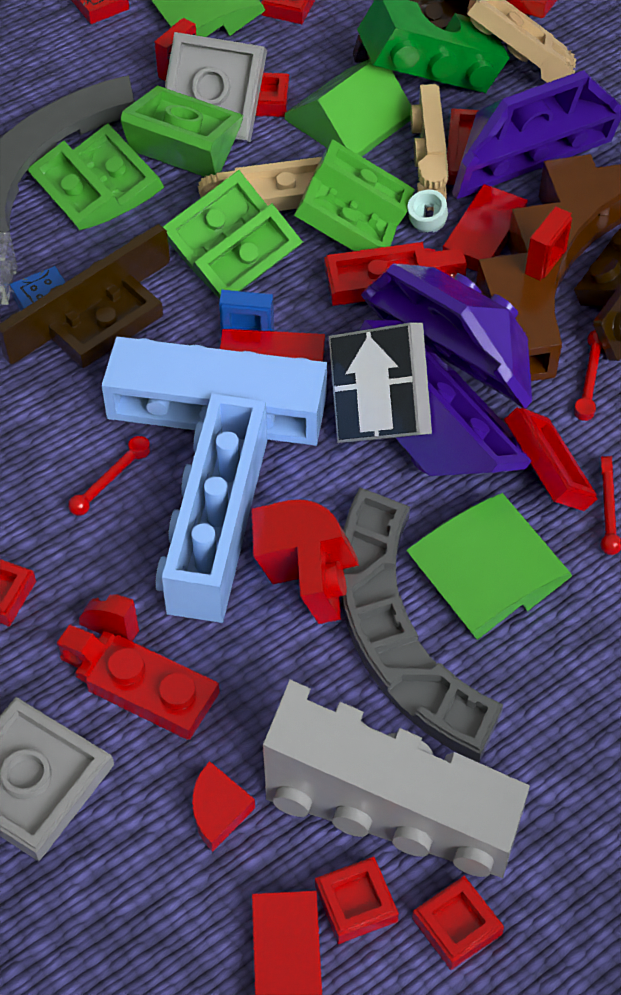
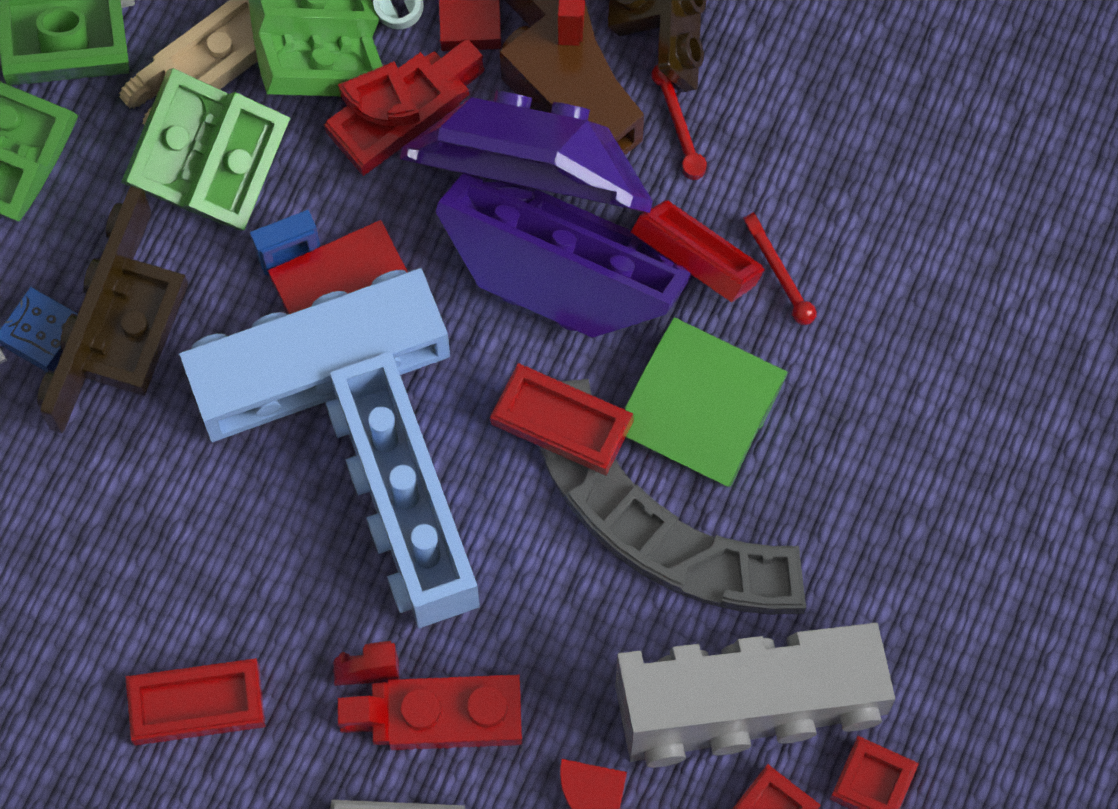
camera: 30 degrees left, 15 degrees up
(138, 449) = (265, 458): red hinge -> none
(304, 544) = (520, 478): red brick -> none
(371, 520) = (562, 419): none -> red tile
(372, 251) = (380, 97): none -> red tile
(380, 383) = (492, 266): tile -> none

